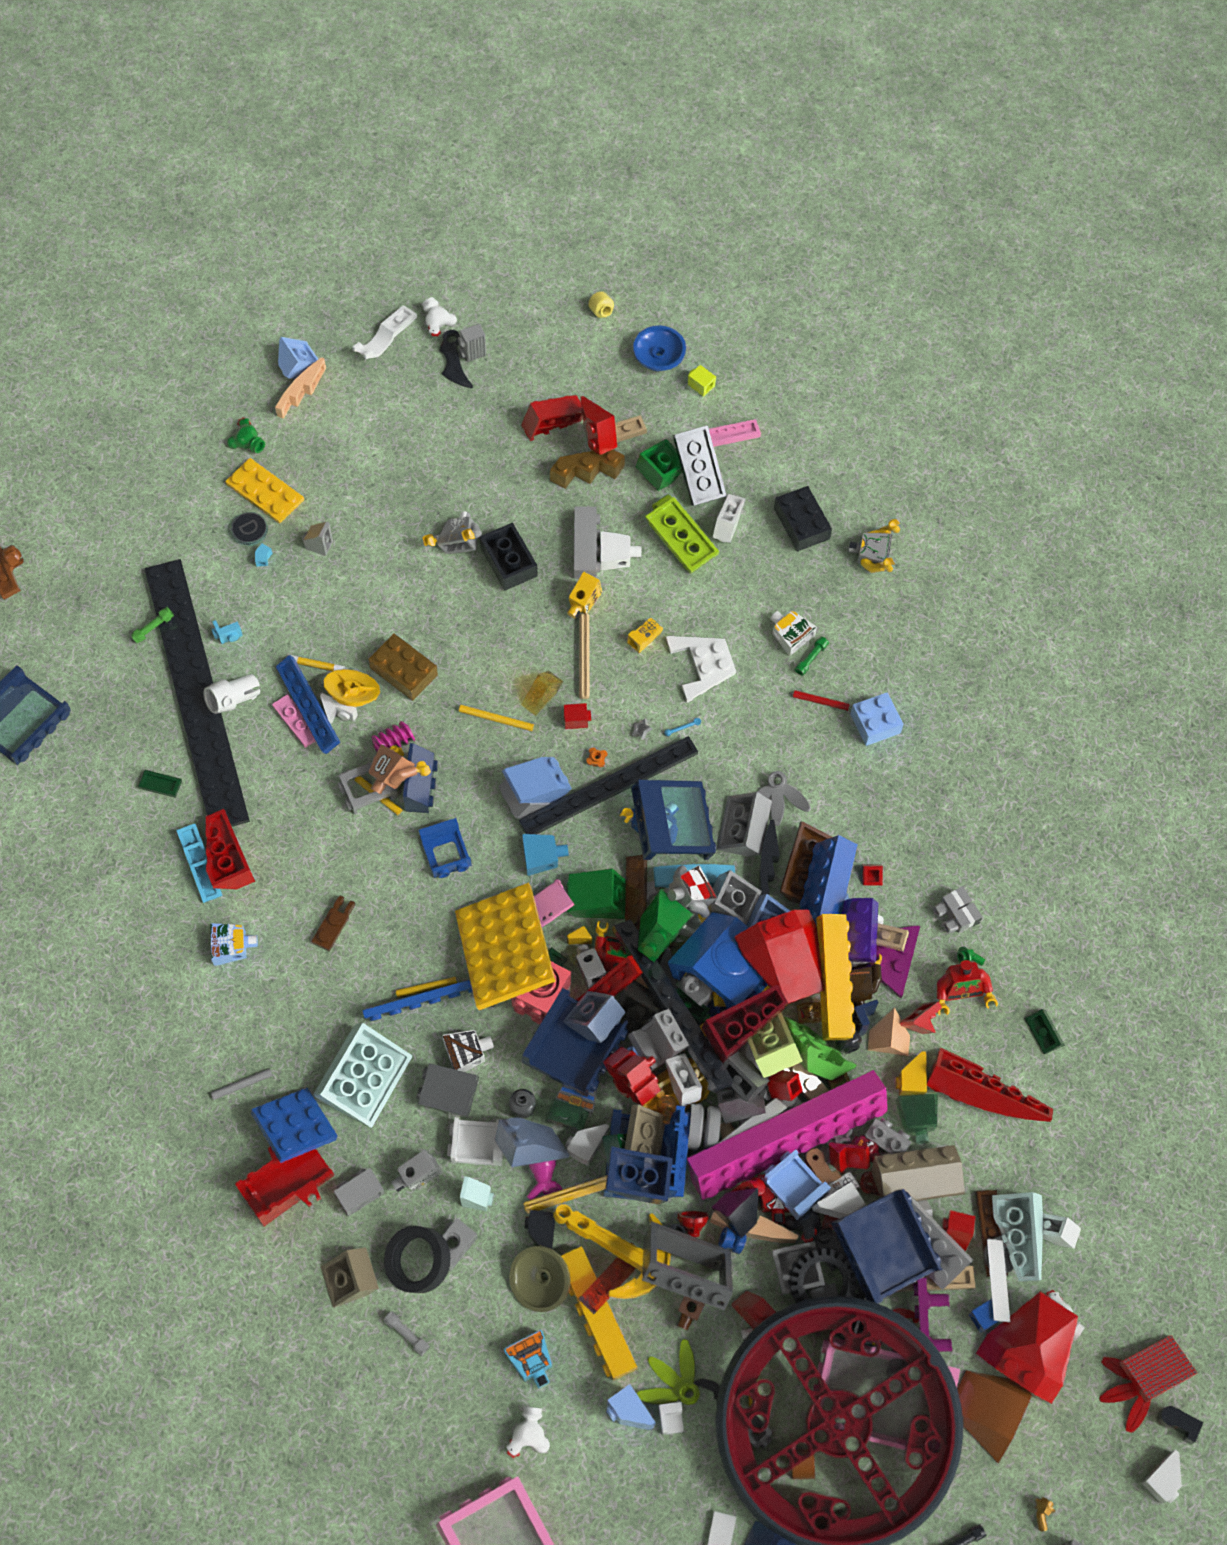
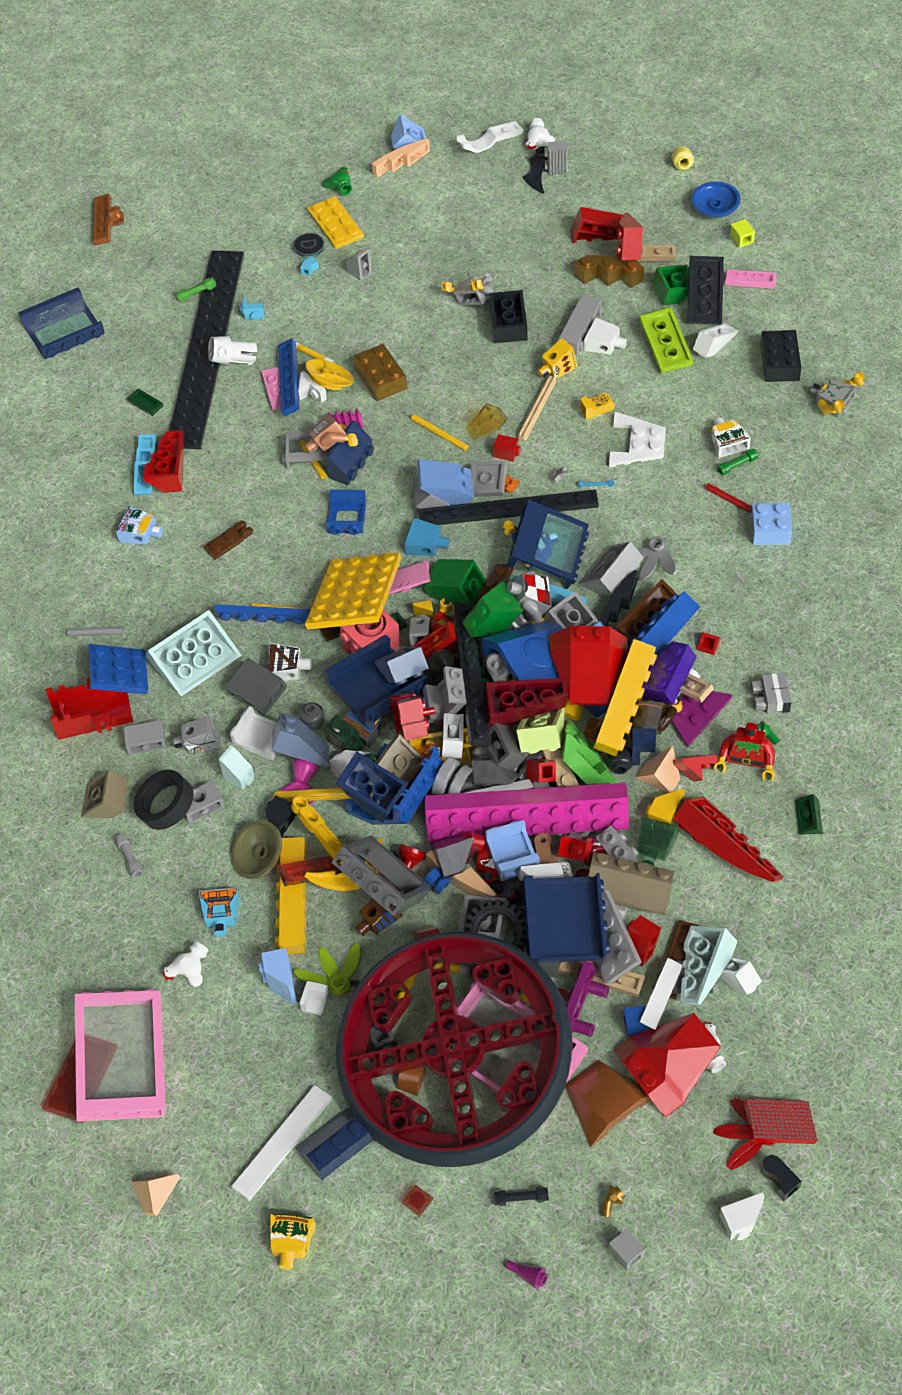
camera: 30 degrees right, 10 degrees down
(575, 758) = (488, 477): none -> light grey hinge

